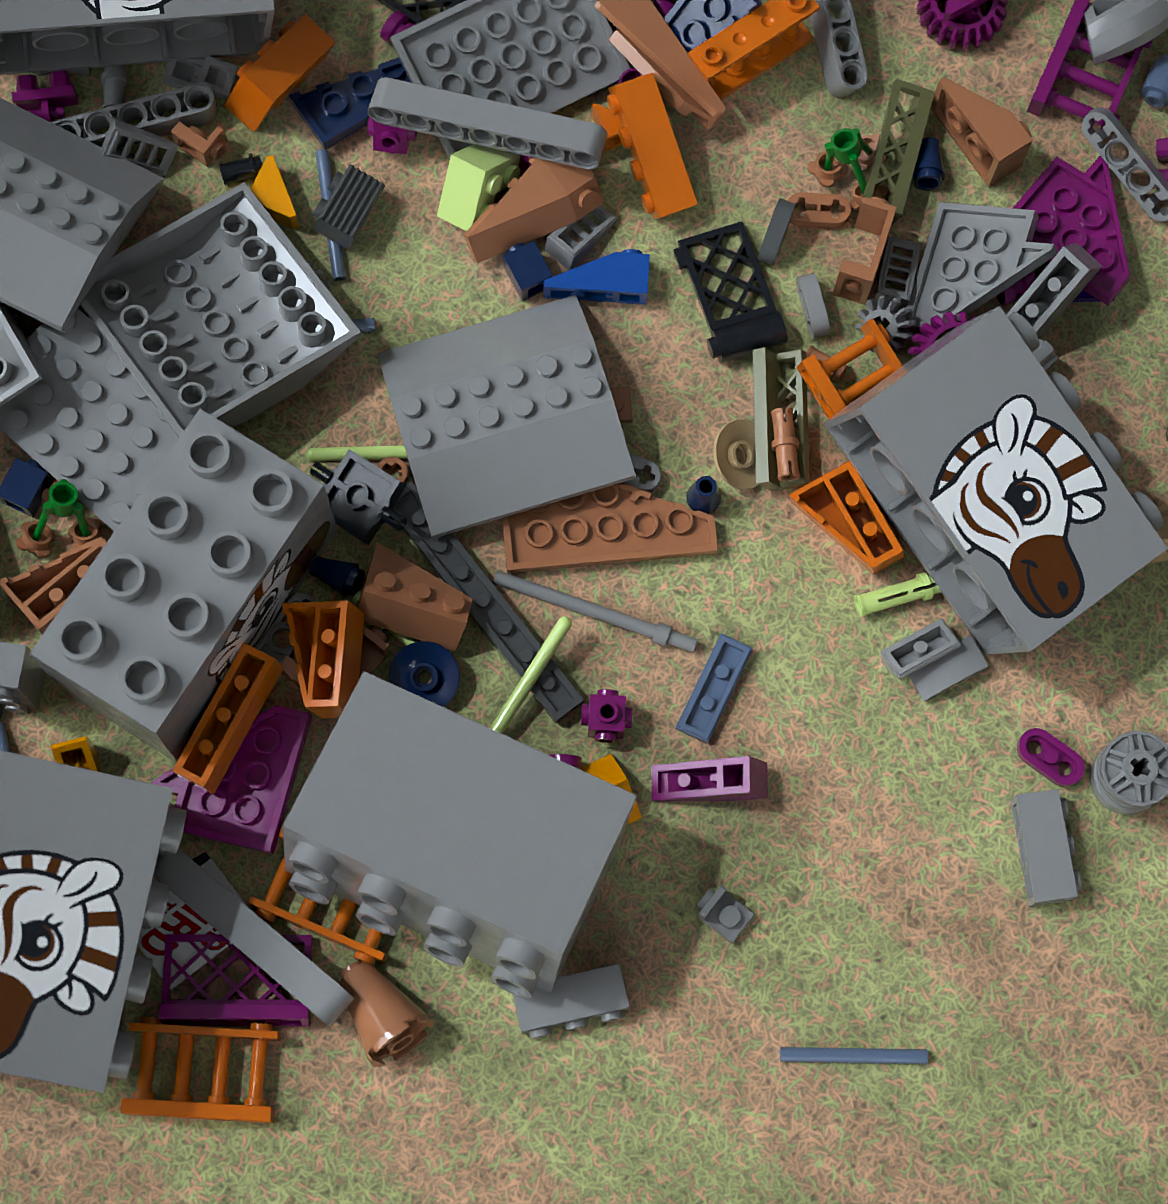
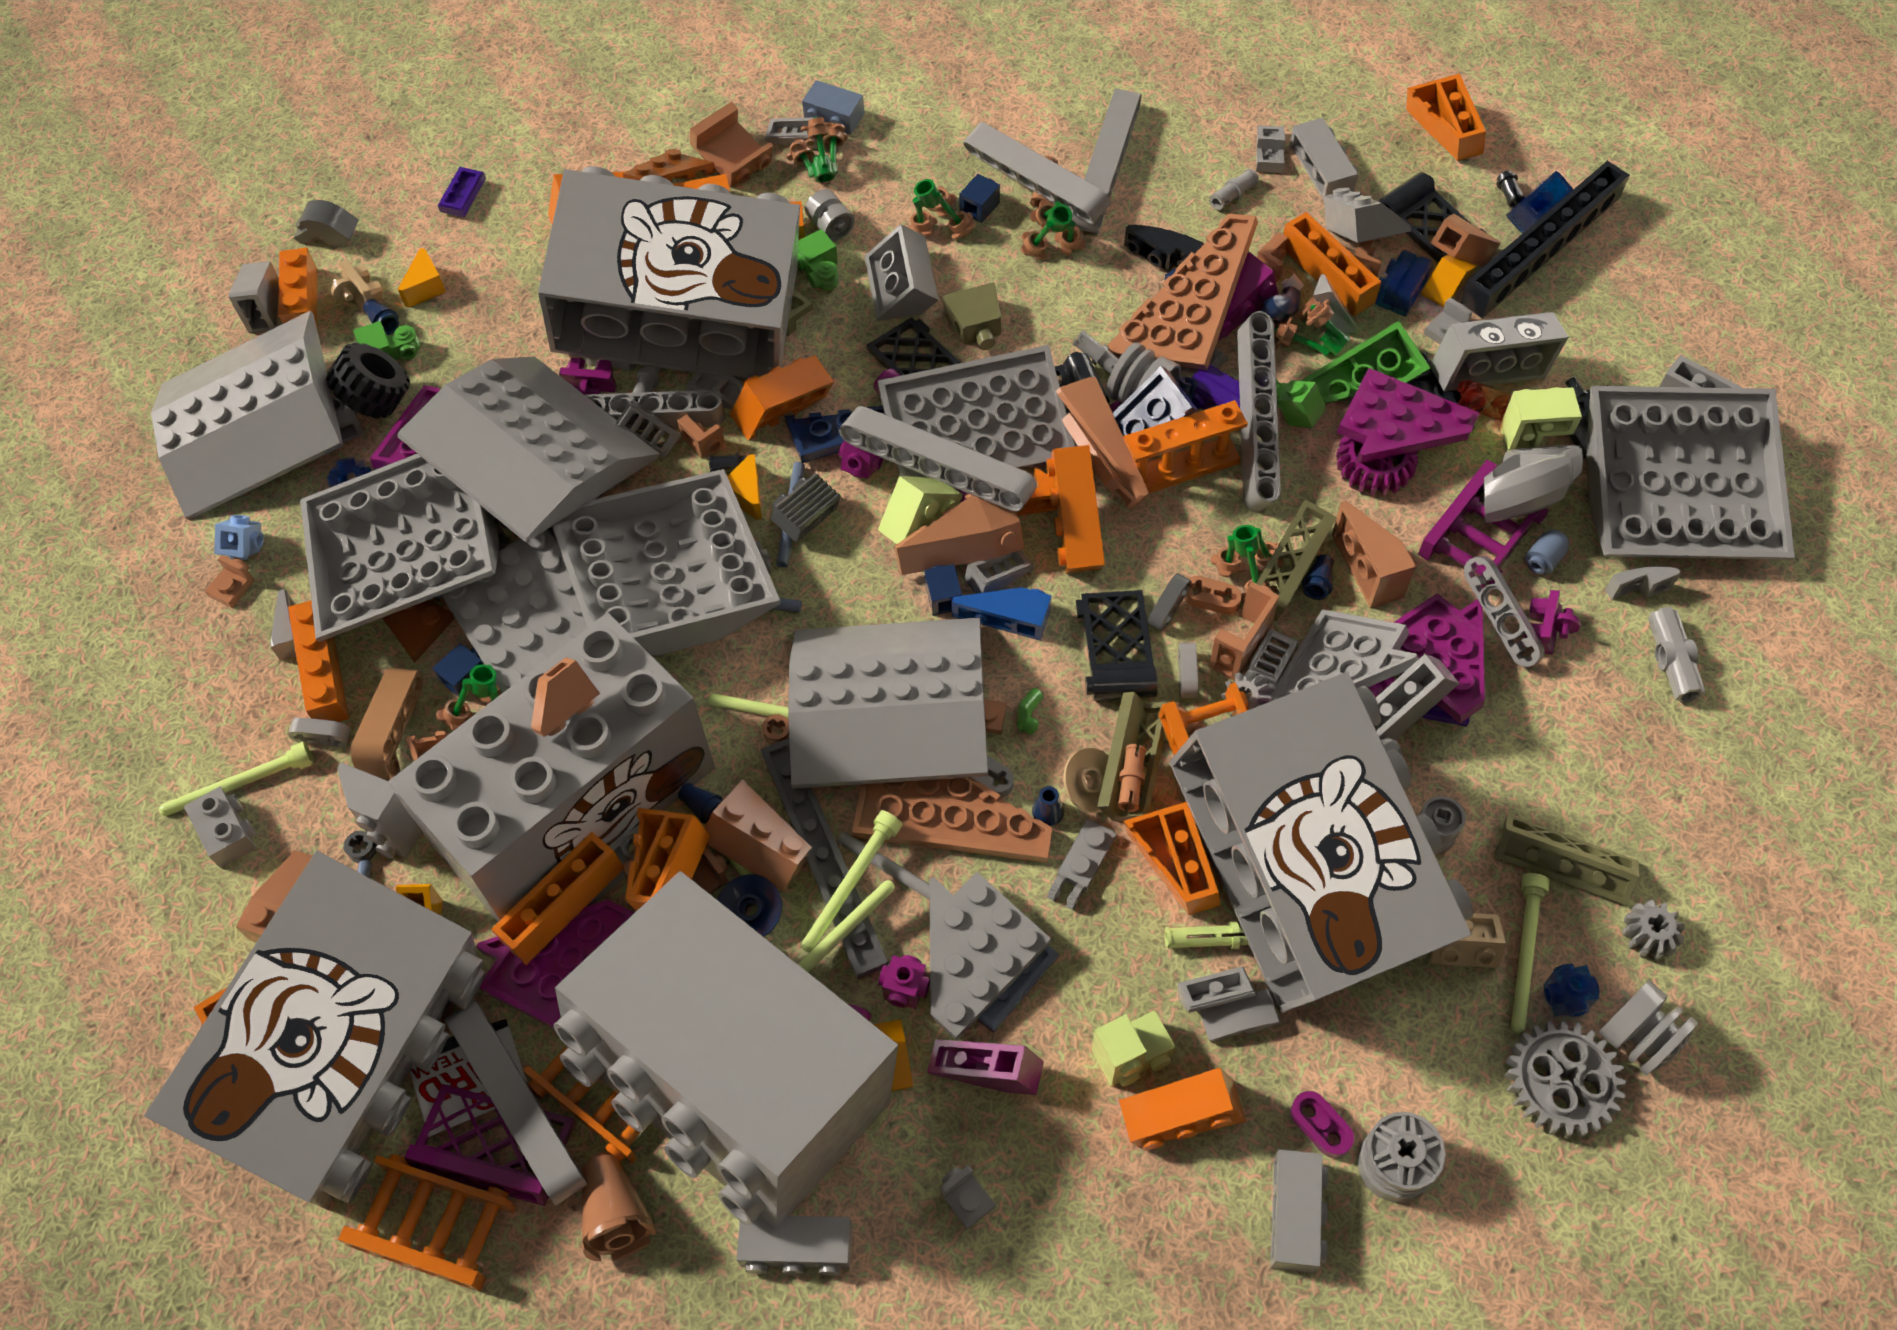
camera: 20 degrees right, 15 degrees down
(190, 522) = (560, 695): none -> nougat slope
(361, 496) = (740, 739): black plate -> none
(543, 559) = (885, 827): none -> yellowish green piece
(652, 390) = (1025, 709): none -> bright green arm
(669, 665) = (975, 950): none -> light grey wing
(753, 542) = (1083, 861): none -> light grey hinge
(850, 727) = (1132, 1047): none -> yellowish green brick
(914, 778) = (1182, 1109): none -> orange wedge
(1111, 425) = (1447, 817): none -> light grey wheel

